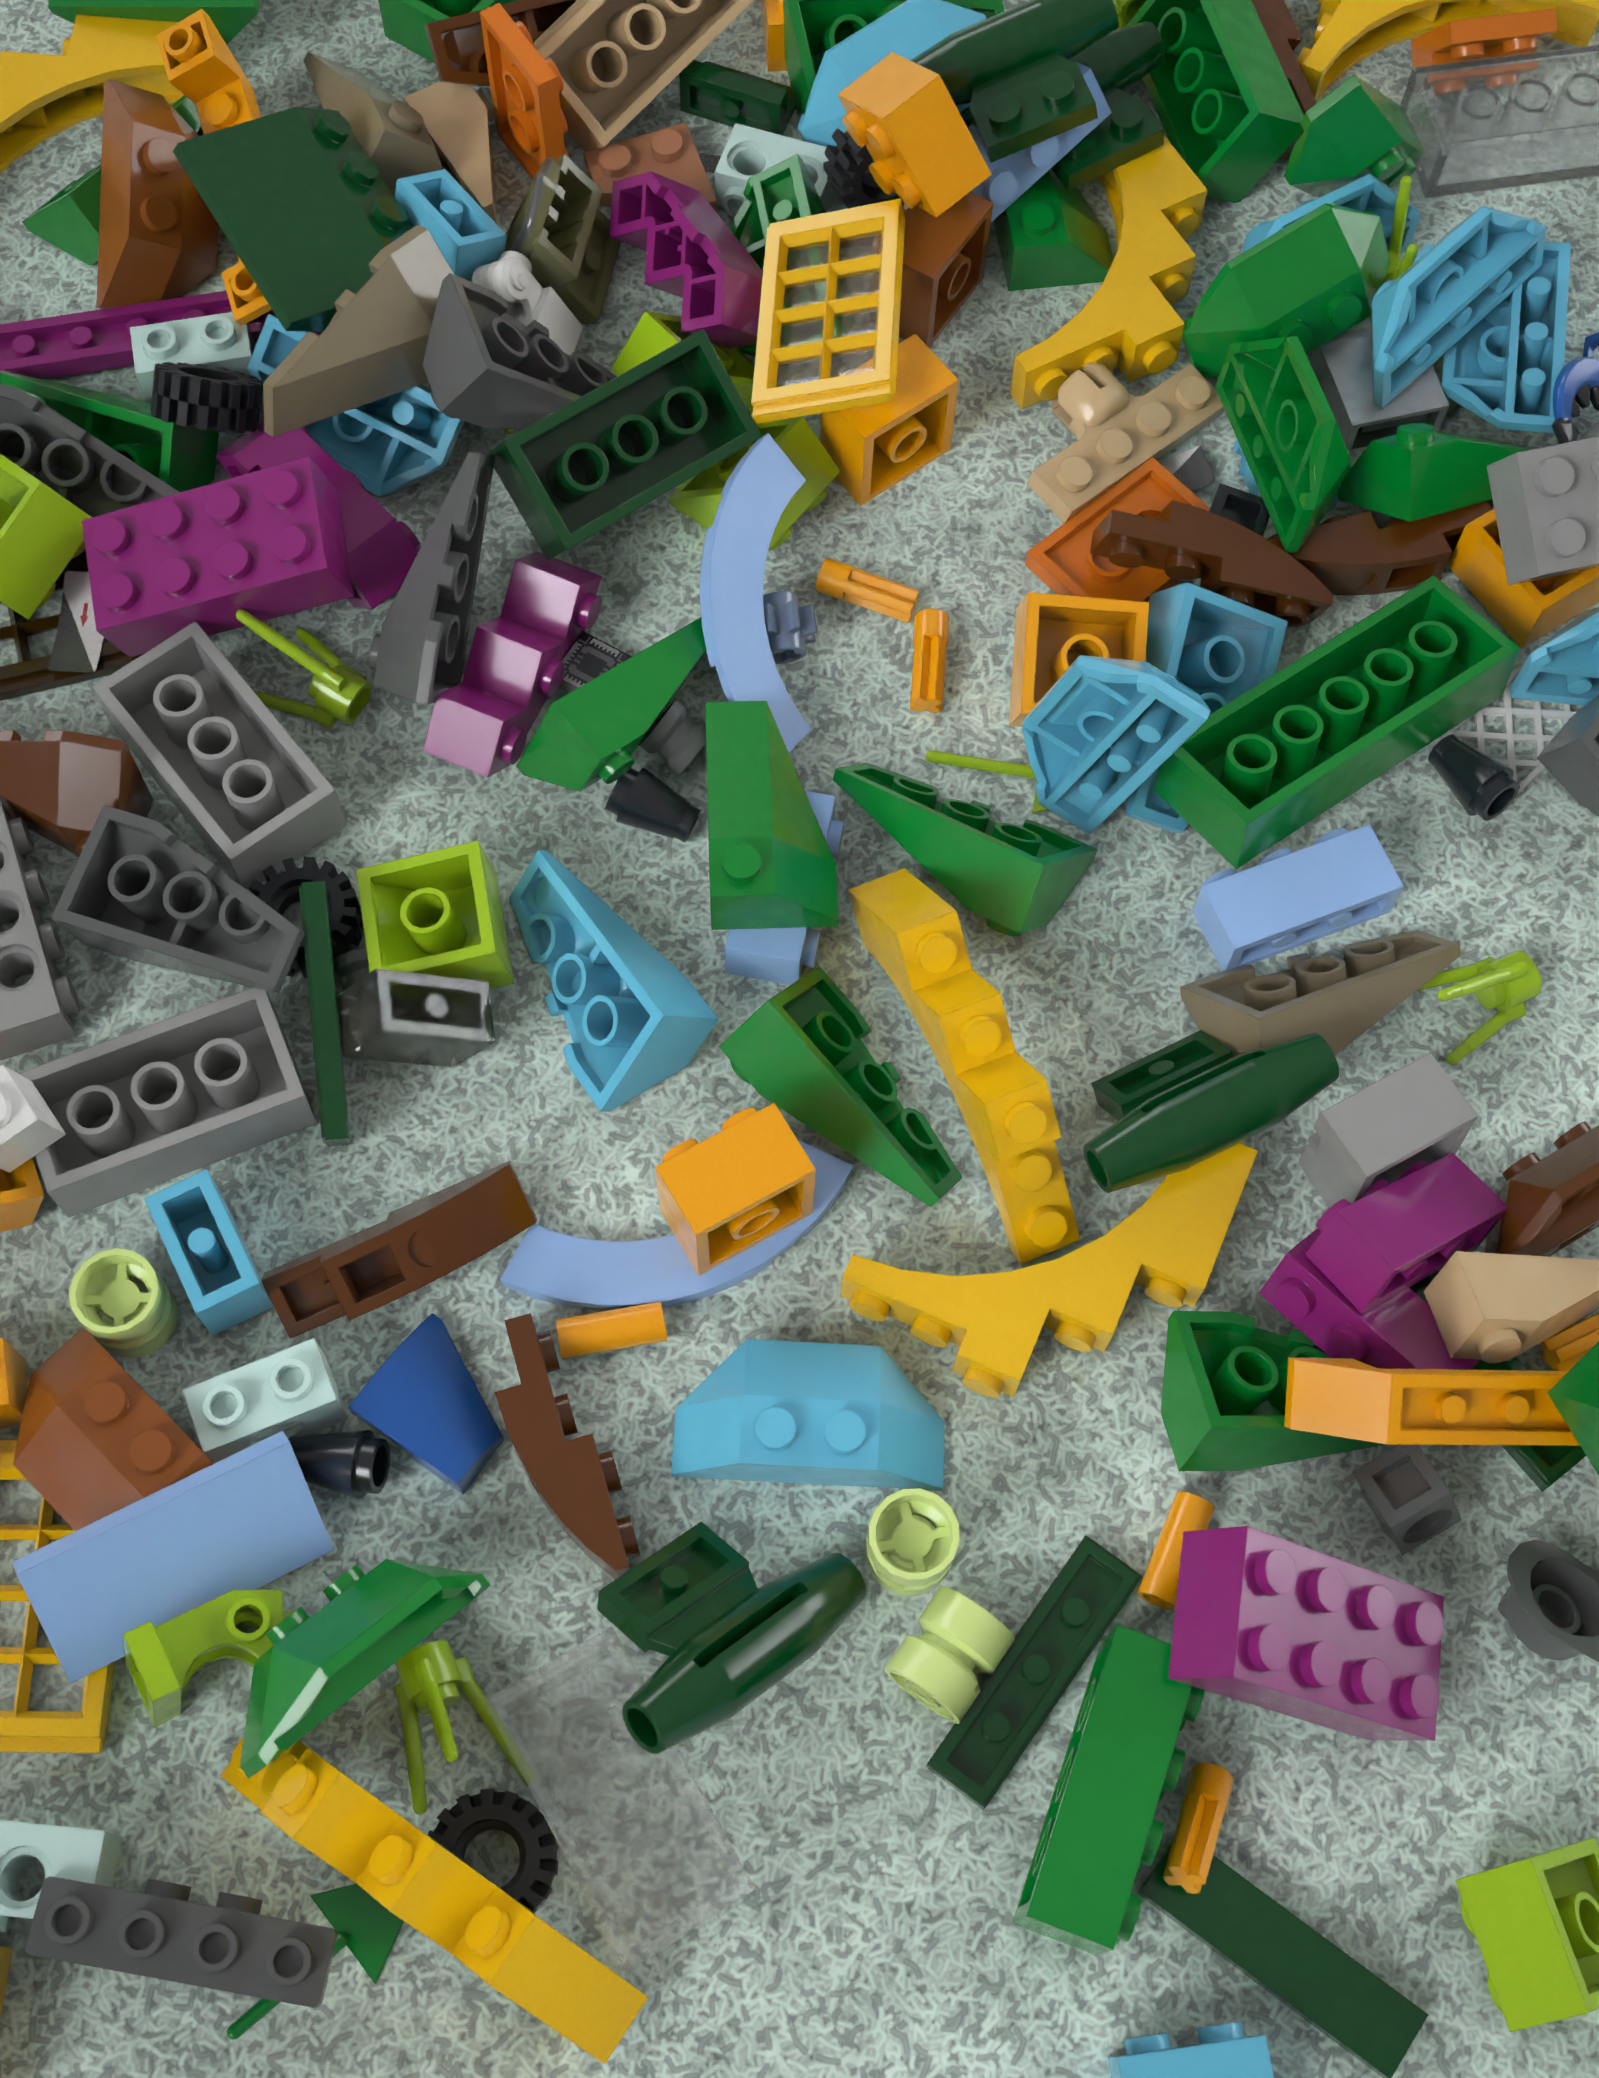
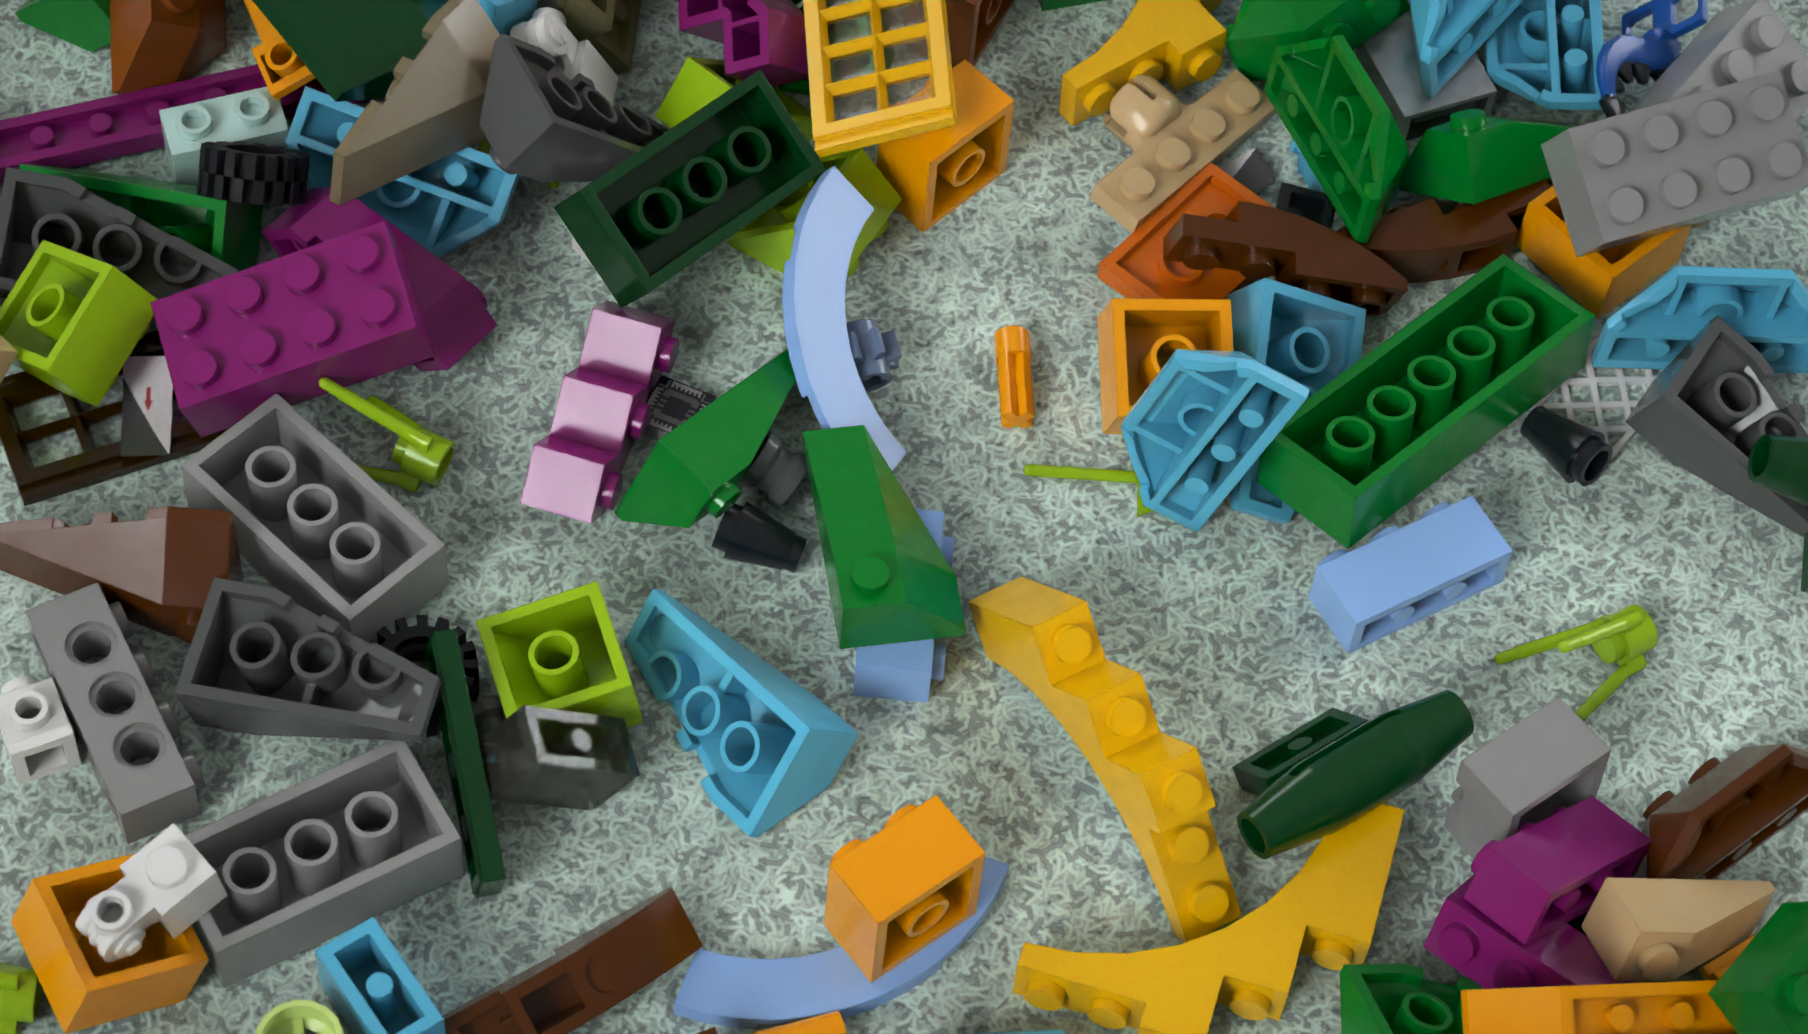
camera: 10 degrees left, 10 degrees down
(430, 618) = (511, 376): dark grey wedge -> none
(811, 1063) = (952, 752): green wedge -> none
(867, 590) = (942, 313): light orange piece -> none
(993, 868) = (1119, 570): green wedge -> none
(1317, 993) = (1452, 658): dark tan wedge -> none

